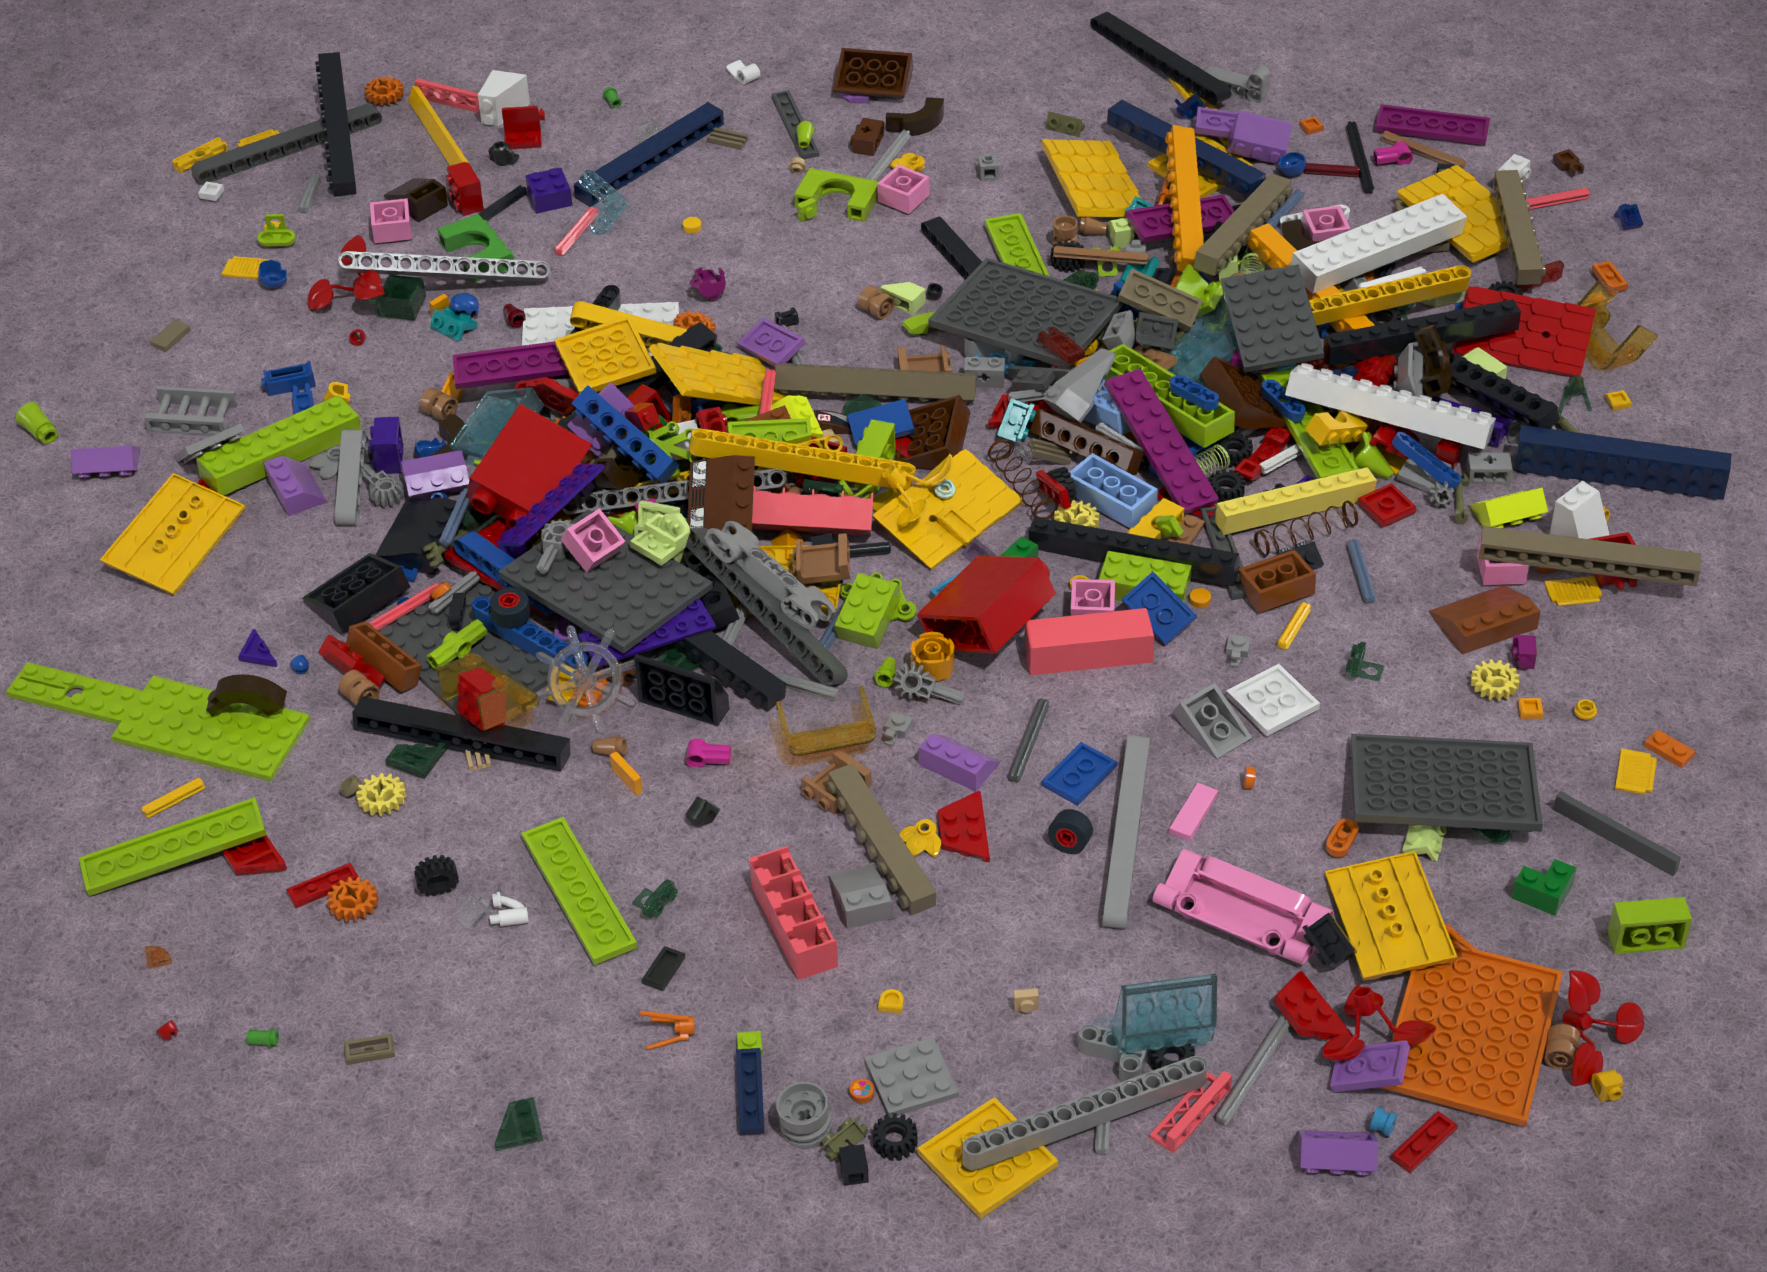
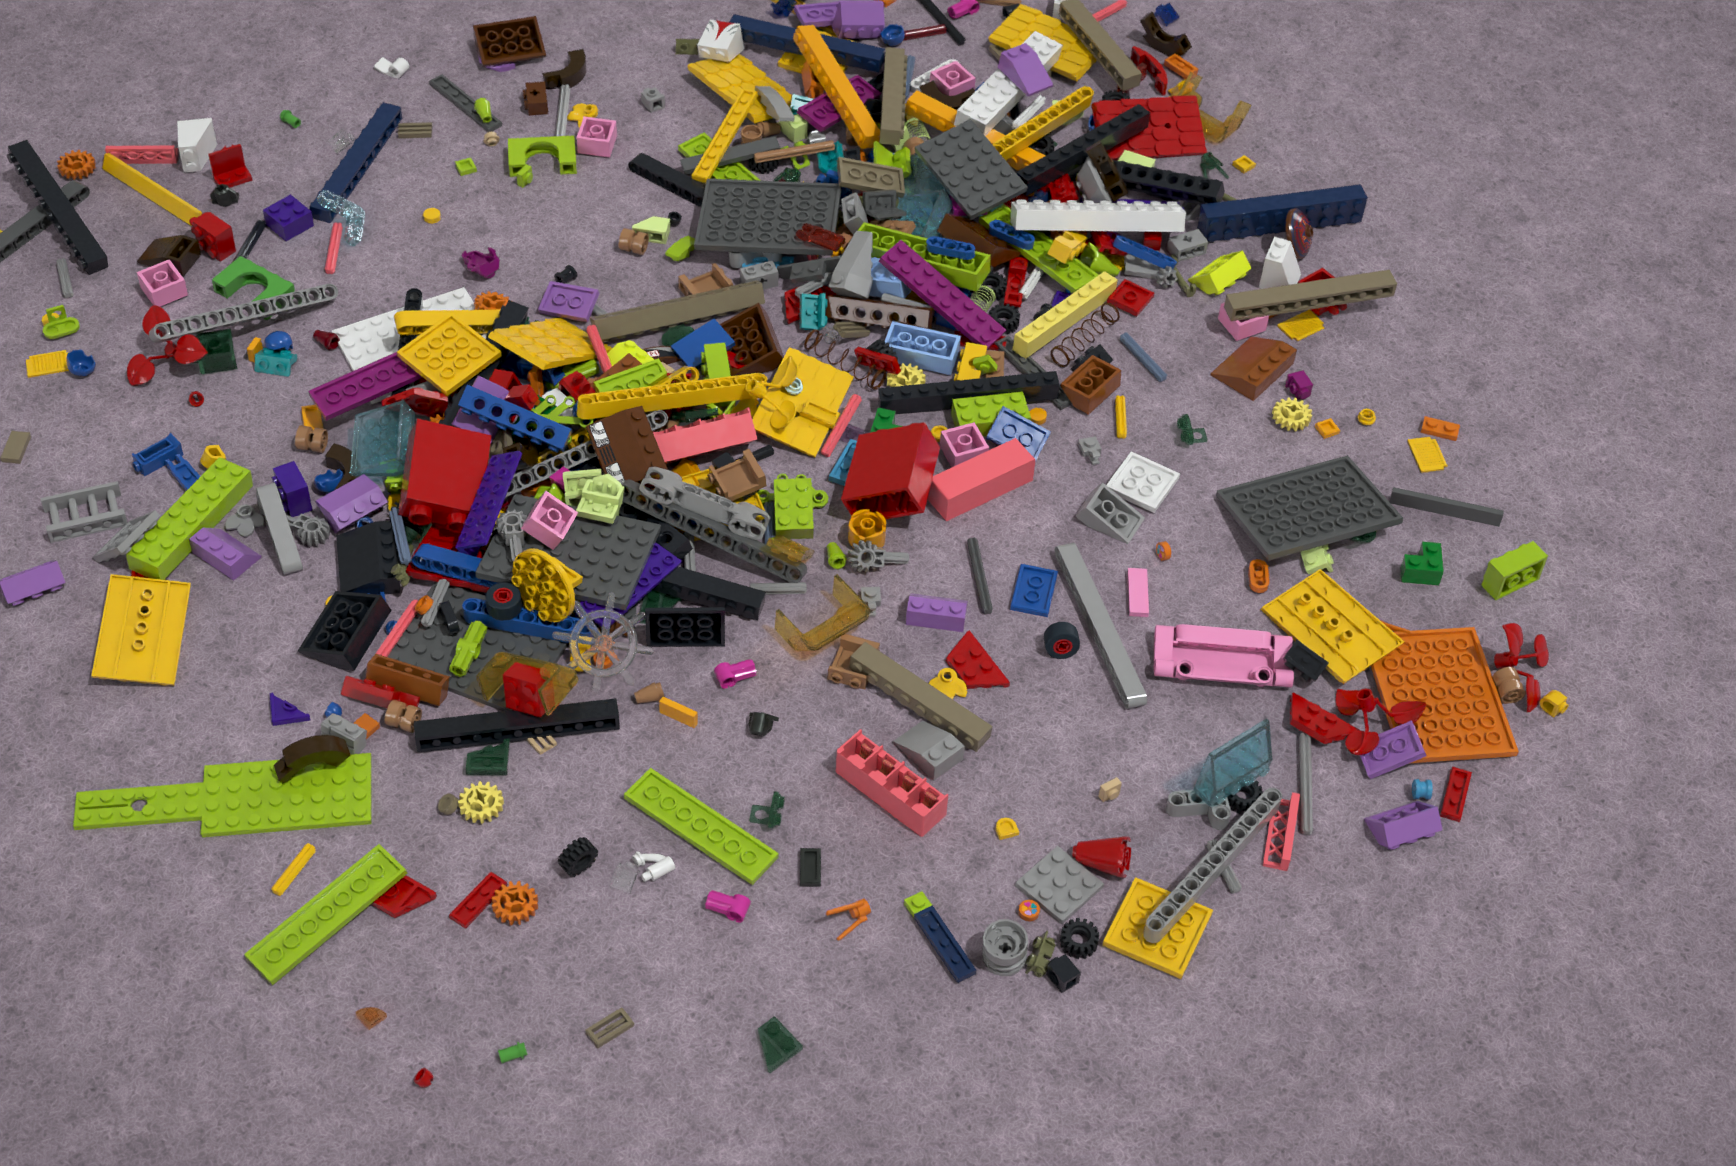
camera: 30 degrees left, 5 degrees up
(298, 690) = (342, 728): none -> light grey brick
(321, 688) = (367, 723): none -> orange tile
(553, 600) = (545, 584): none -> yellow bracket
(558, 977) = (733, 907): none -> dark pink piece
(756, 186) = (465, 166): none -> lime tile
(835, 647) = (794, 550): none -> clear yellow plate
(973, 543) = (841, 425): none -> coral axle
(977, 1064) = (1106, 855): none -> red cone
(1027, 241) = (734, 153): none -> dark grey tile
(1035, 219) = (724, 135): none -> yellow tile
(1092, 124) = (720, 41): none -> white slope
(1108, 200) = (775, 103): none -> light grey slope
(1397, 229) = (1025, 69): none -> medium lavender slope
(1571, 260) = (1153, 67): none -> red slope
(1602, 242) = (1162, 41): none -> dark brown arch
(1622, 488) = (1299, 232): none -> dish

